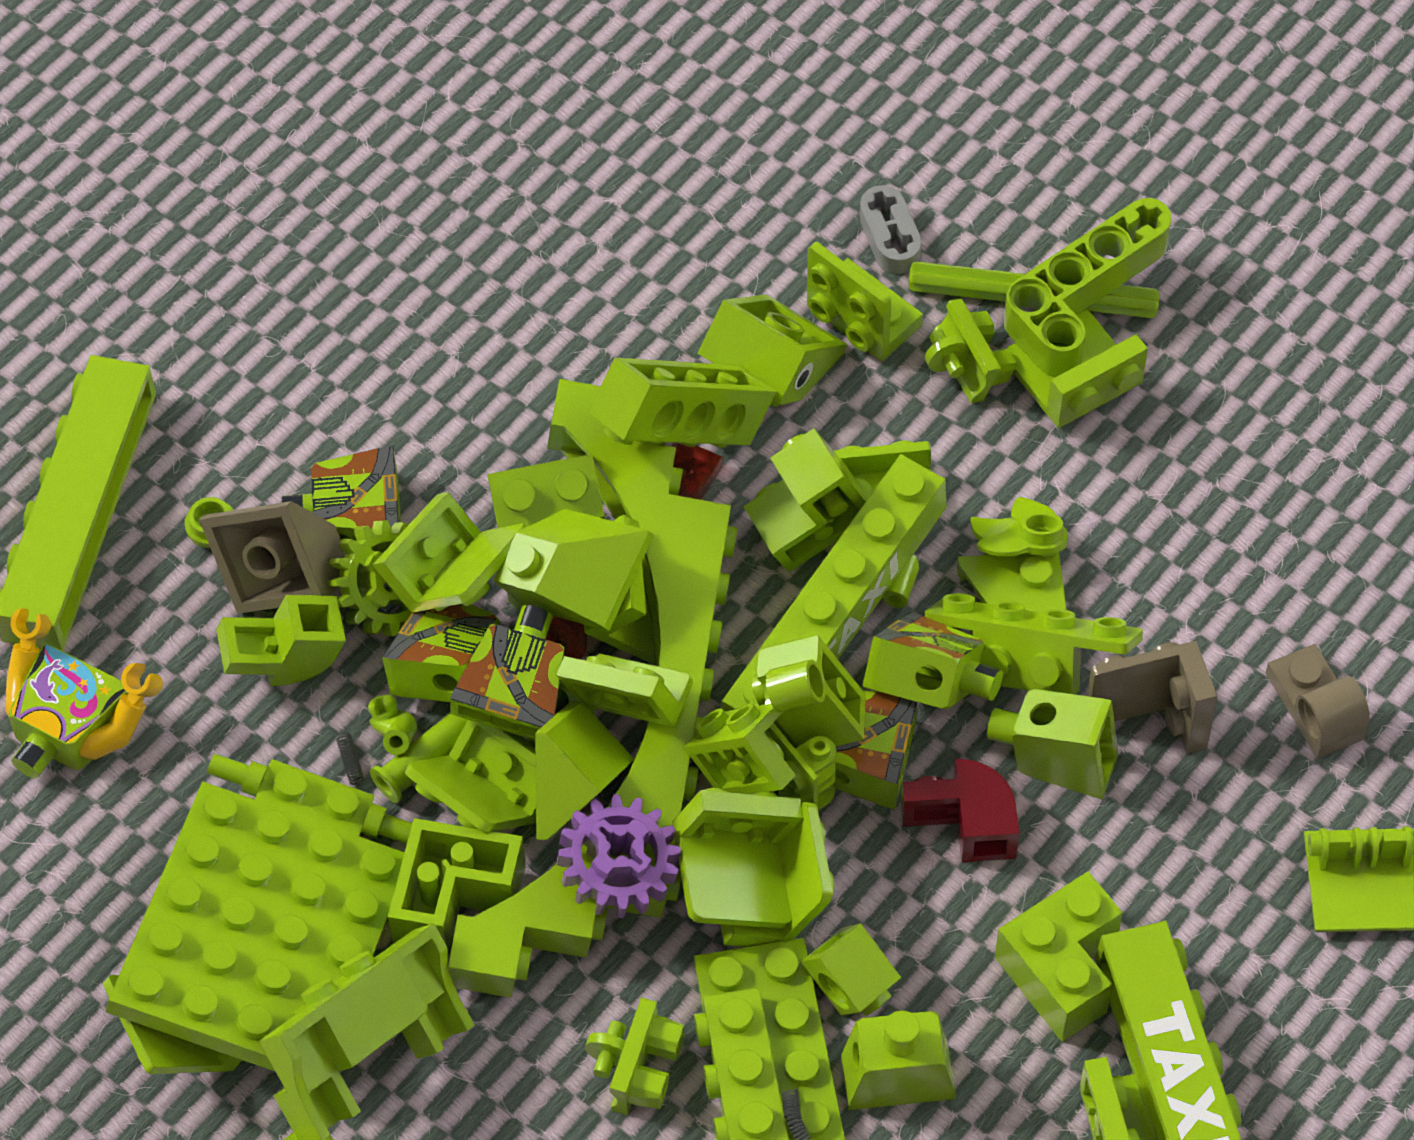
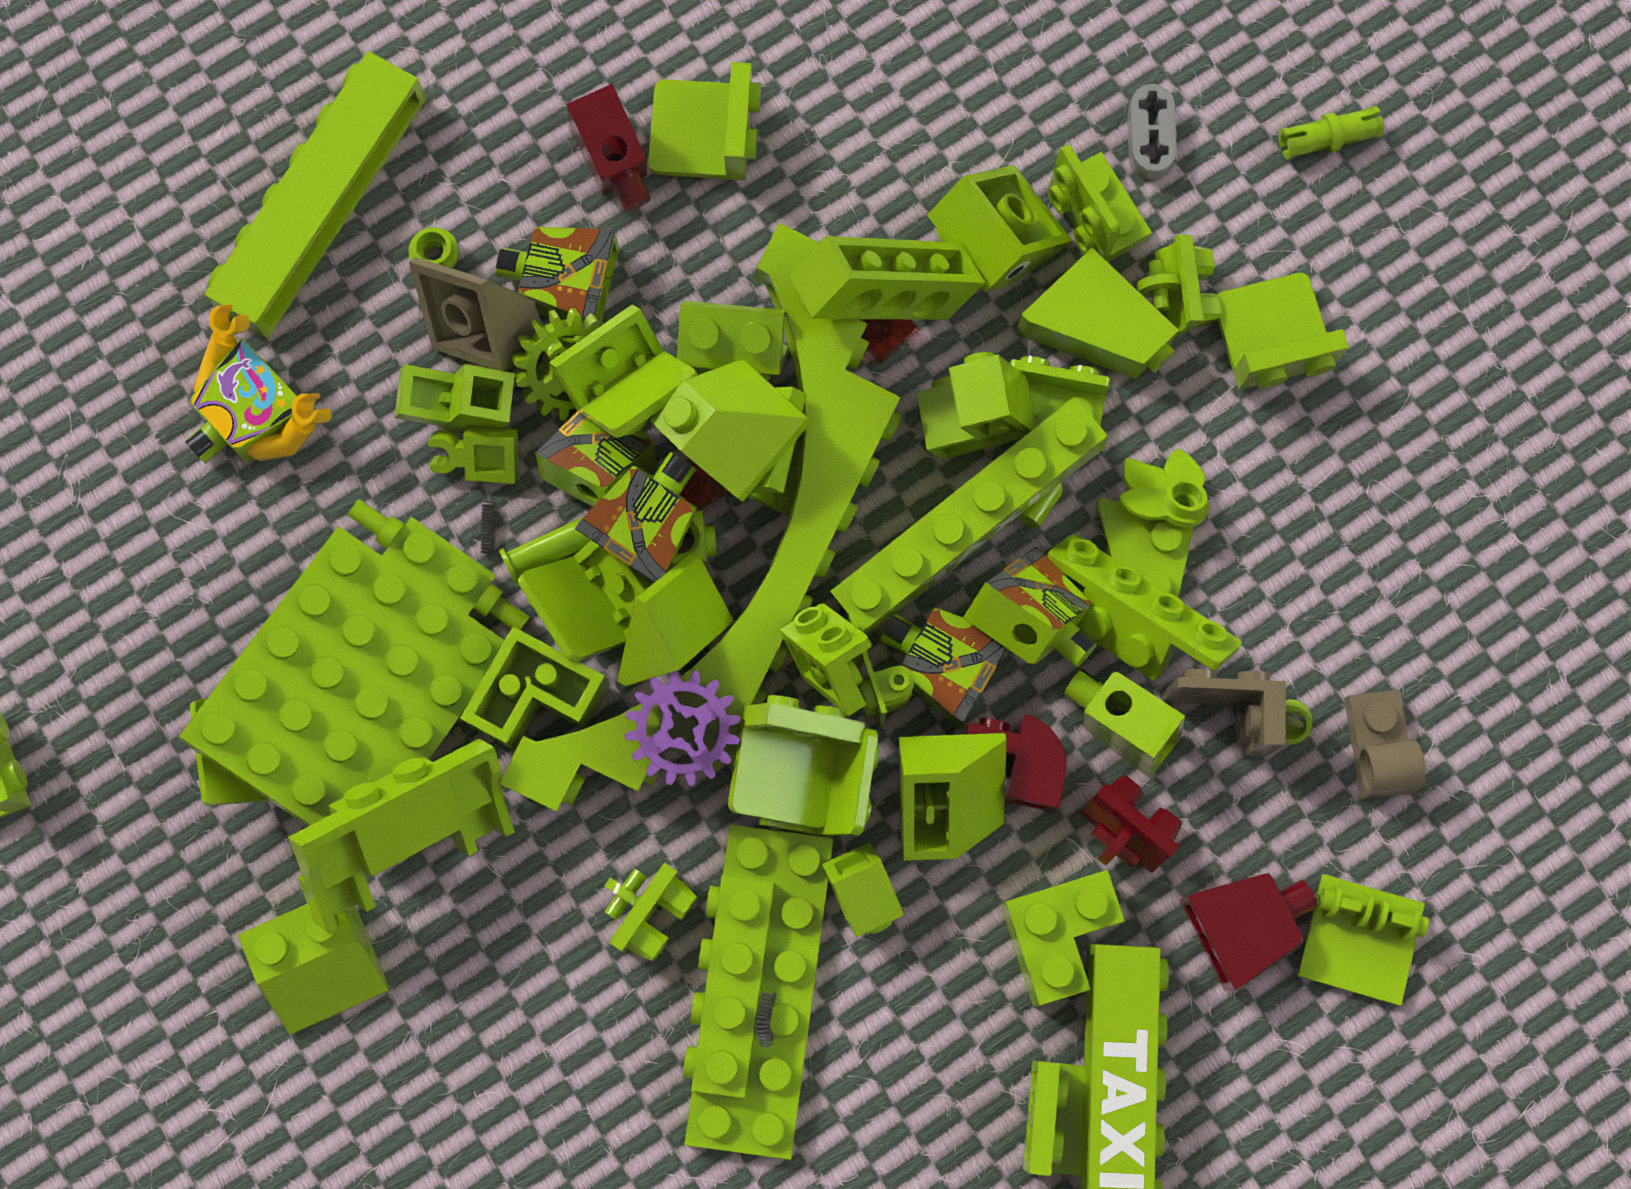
camera: 15 degrees right, 20 degrees up
(327, 685) = (483, 451): none -> lime plate
(360, 374) = (604, 132): none -> dark red torso
(395, 725) = (536, 510): lime arm -> none
(451, 338) = (705, 126): none -> lime bracket
(626, 687) = (746, 560): lime bracket -> none
(811, 692) = (906, 624): lime hinge -> none
(897, 1061) = (875, 993): lime torso -> none
(900, 397) = (1100, 320): none -> lime slope
(905, 850) = (949, 793): none -> lime slope
(995, 284) = (1265, 237): lime axle -> none
(1063, 184) = (1331, 132): none -> lime pin
(1098, 841) = (1127, 830): none -> dark red hips
(1135, 240) = (1323, 249): lime beam -> none
(1226, 712) = (1295, 729): none -> lime hinge
(1244, 894) = (1247, 925): none -> dark red torso

